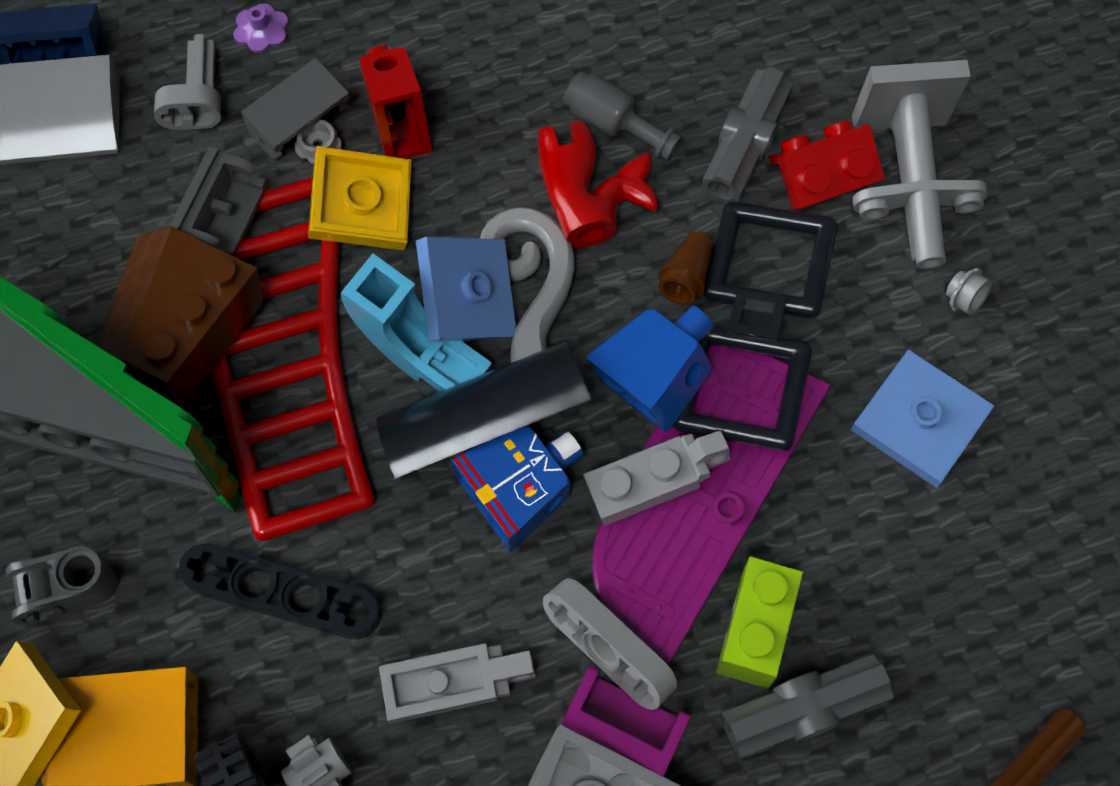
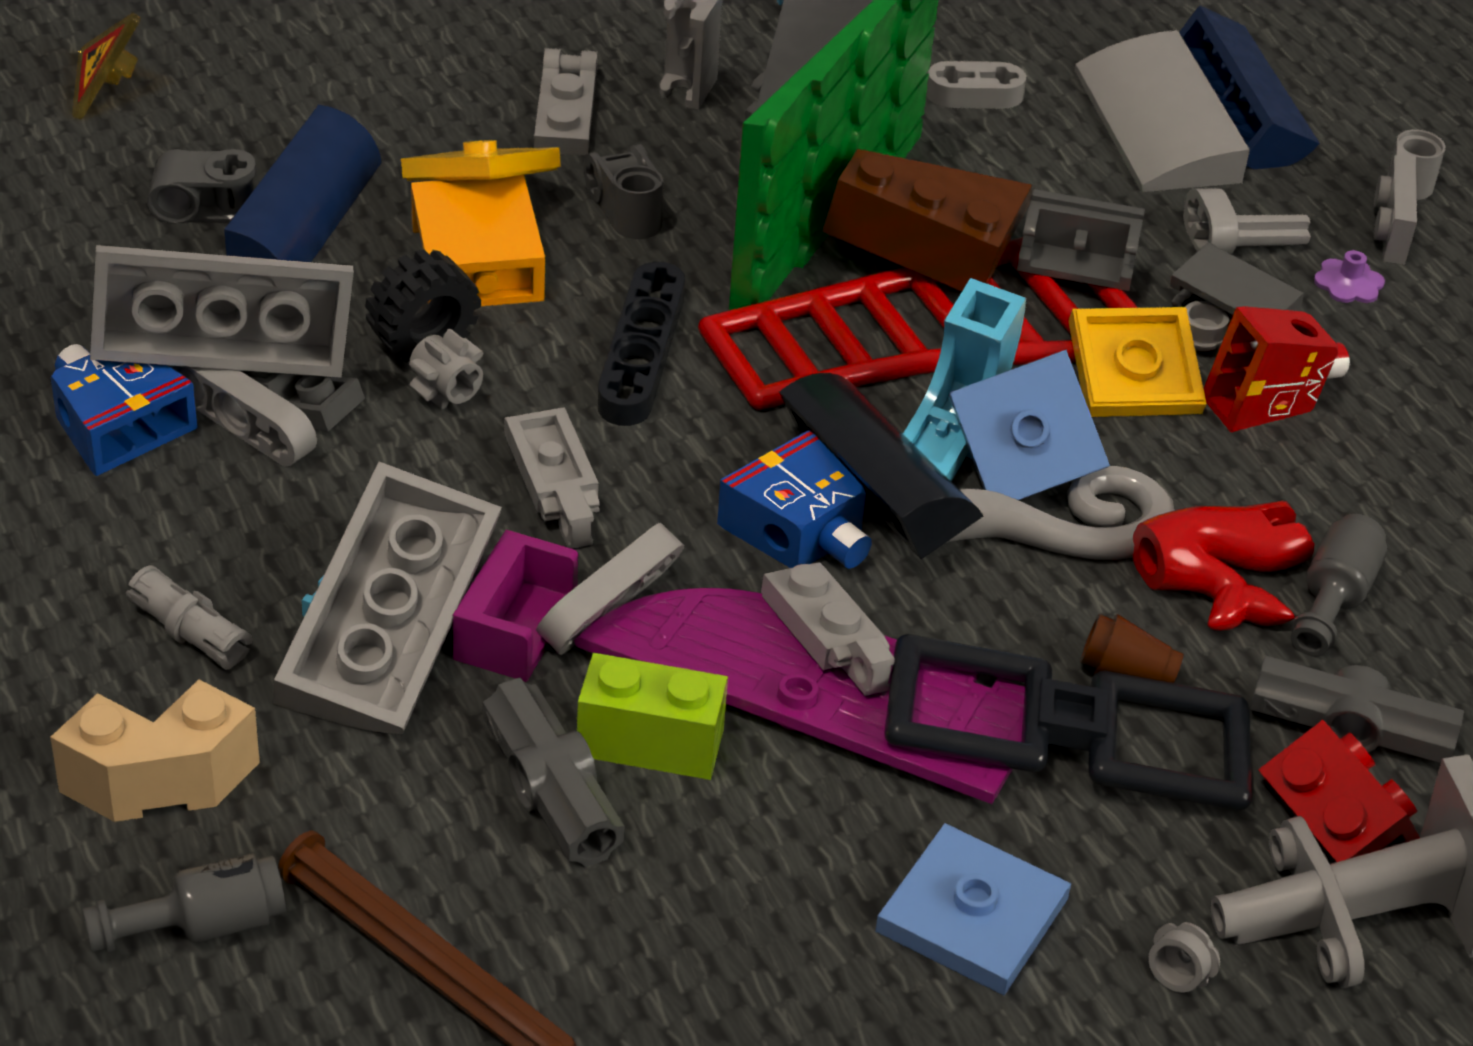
camera: 80 degrees right, 25 degrees down
(656, 363) = (971, 602): blue torso -> none

